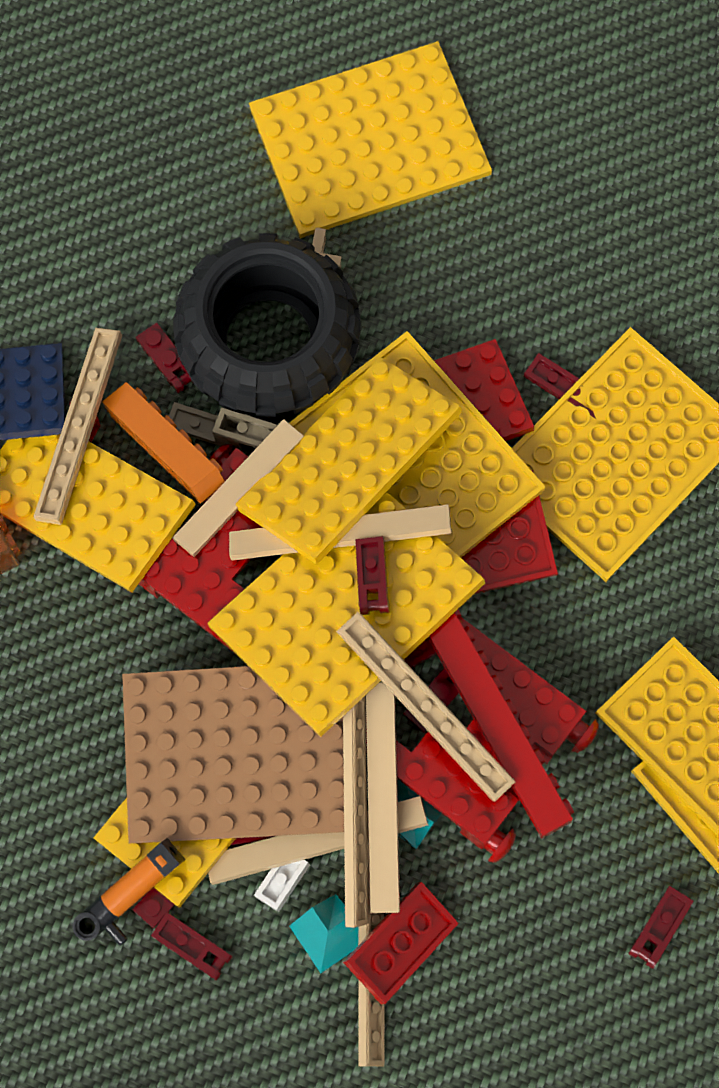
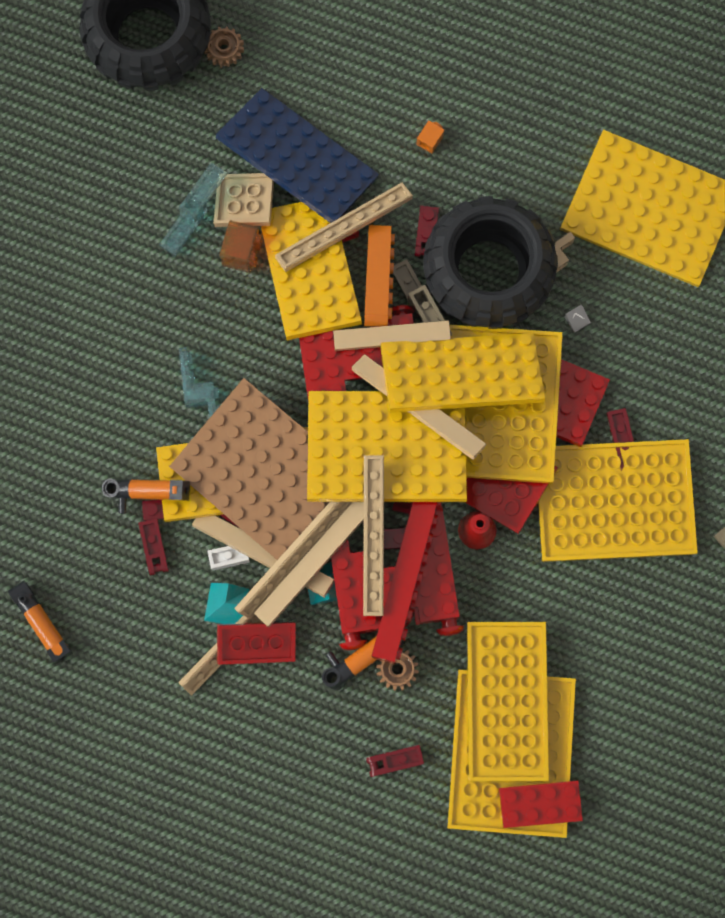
camera: 45 degrees right, 5 degrees up
(79, 259) = (430, 136): none -> orange brick
(84, 739) = (200, 393): none -> clear light blue bracket
(372, 574) = (411, 443): dark red plate -> none
(404, 308) = (577, 318): none -> light grey slope
(511, 610) = (475, 536): none -> red cone
(521, 869) = (350, 666): none -> piece
(576, 844) = (401, 679): none -> medium nougat gear

